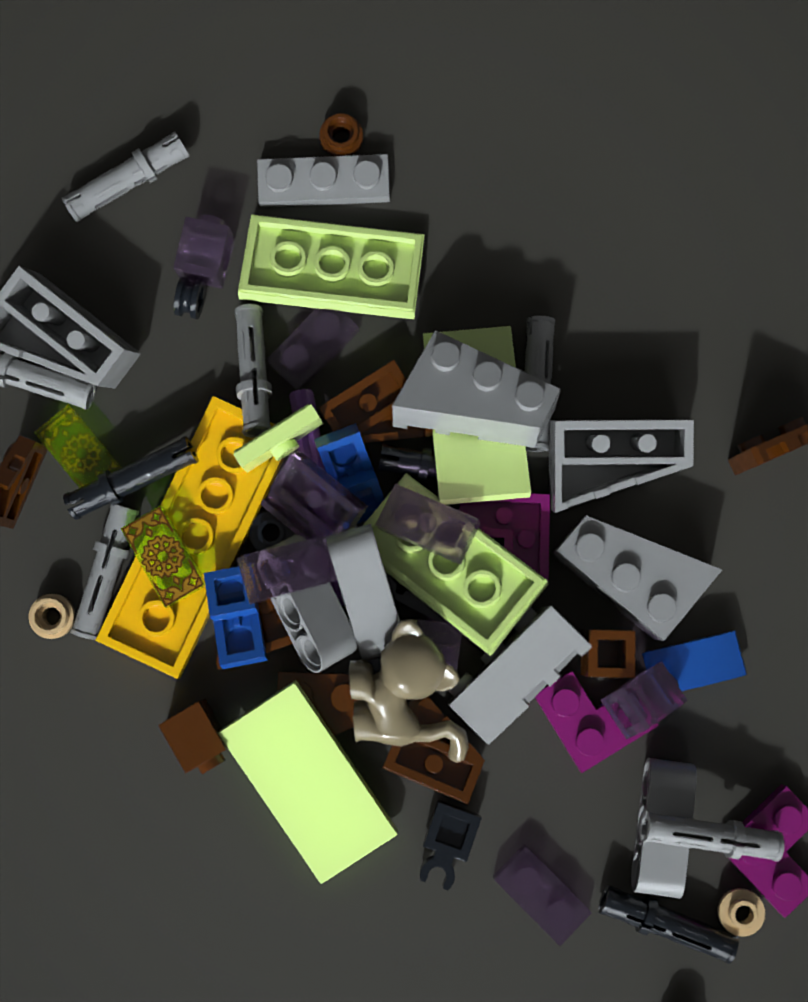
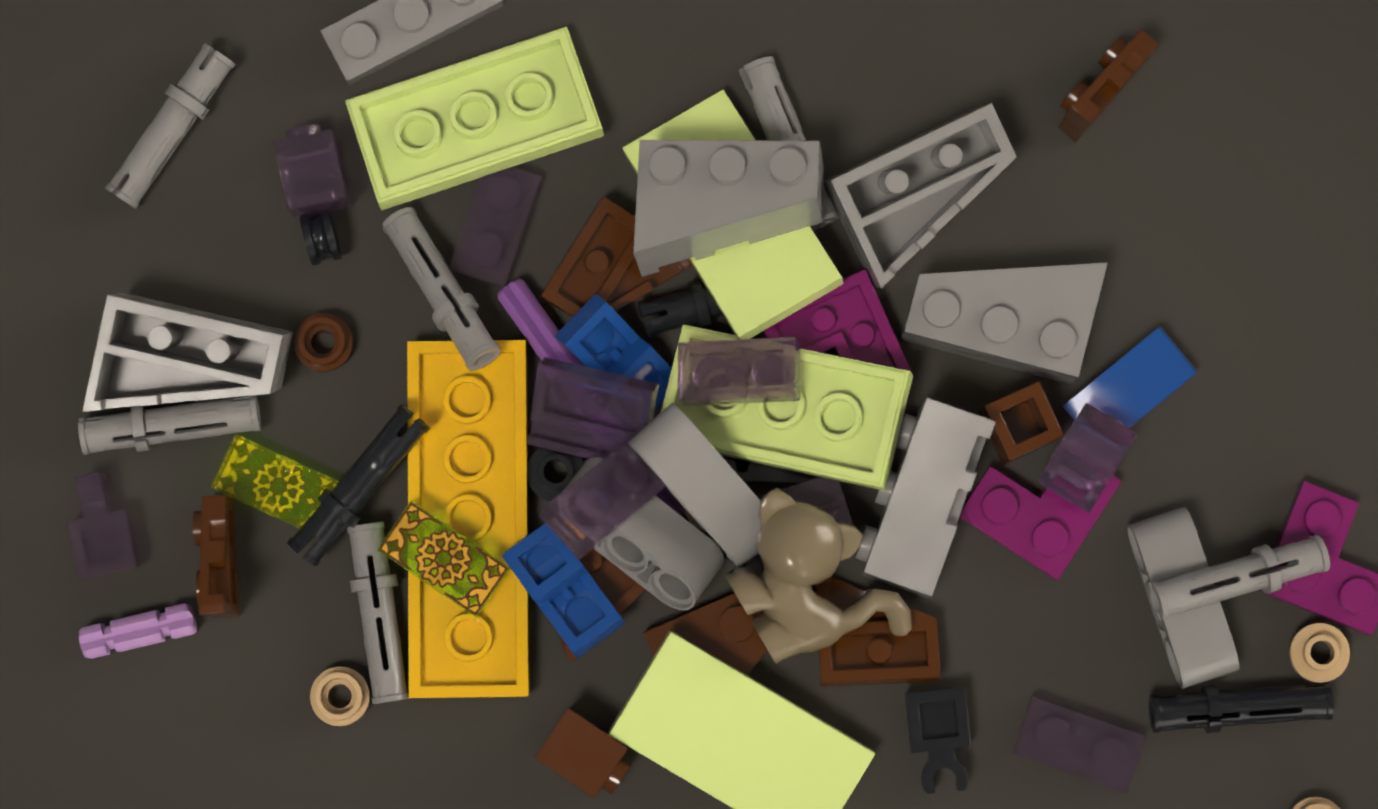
camera: 25 degrees left, 0 degrees up
(148, 361) = (310, 329): none -> reddish brown plate
(279, 439) = (515, 356): yellowish green plate -> none

